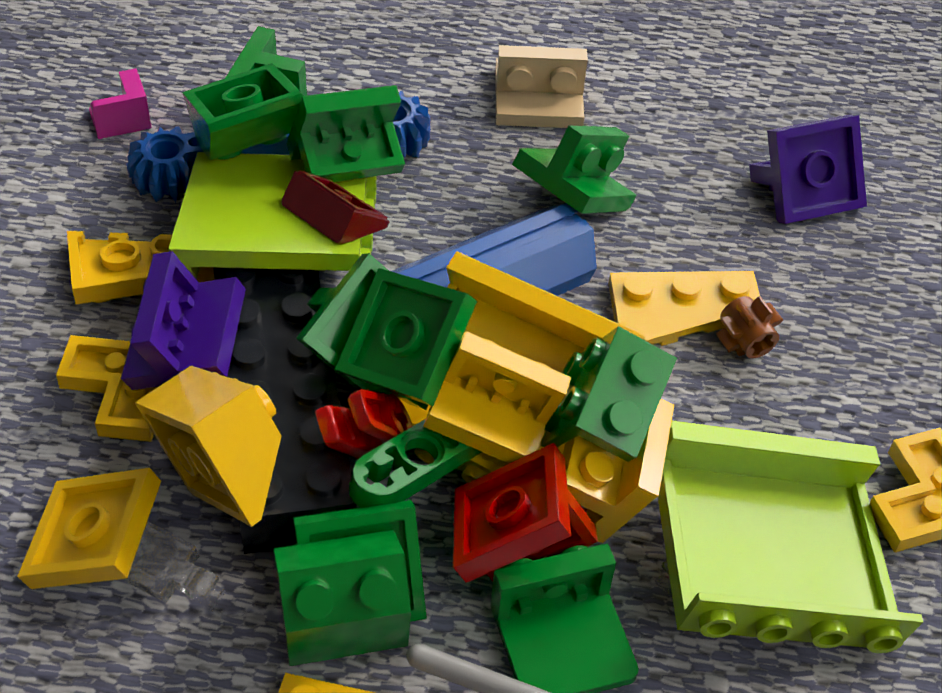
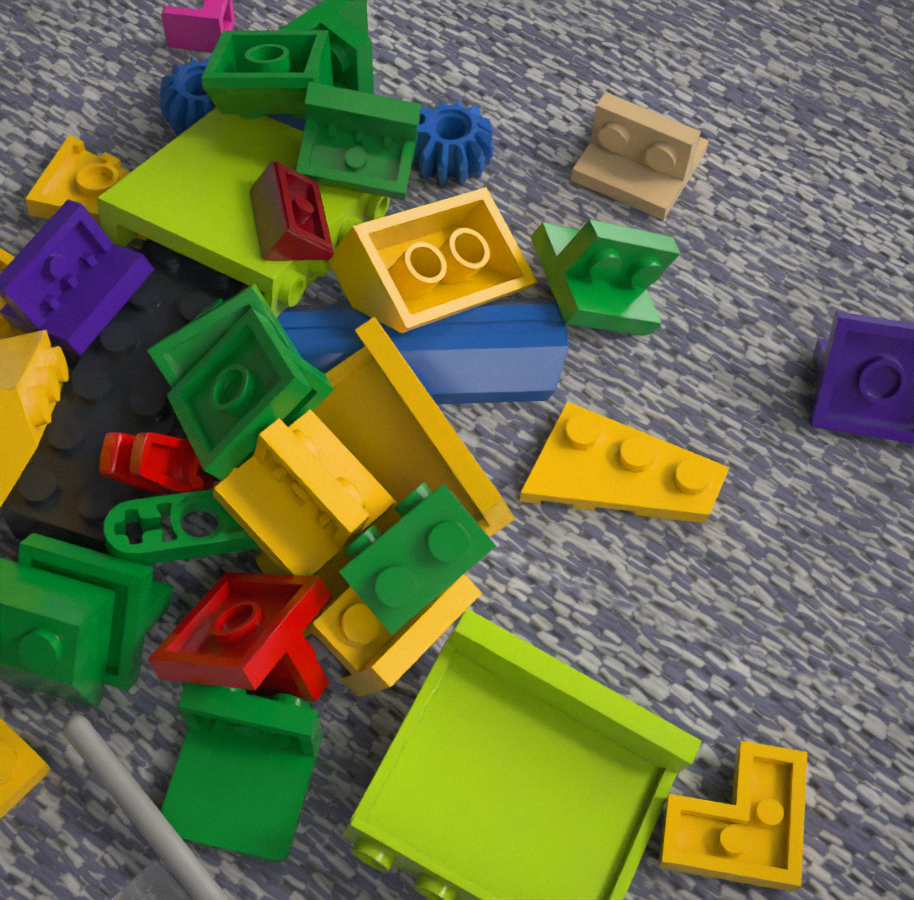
camera: 30 degrees right, 10 degrees up
(452, 207) = (431, 262): none -> yellow slope
(749, 327) = (671, 532): dark orange gear -> none

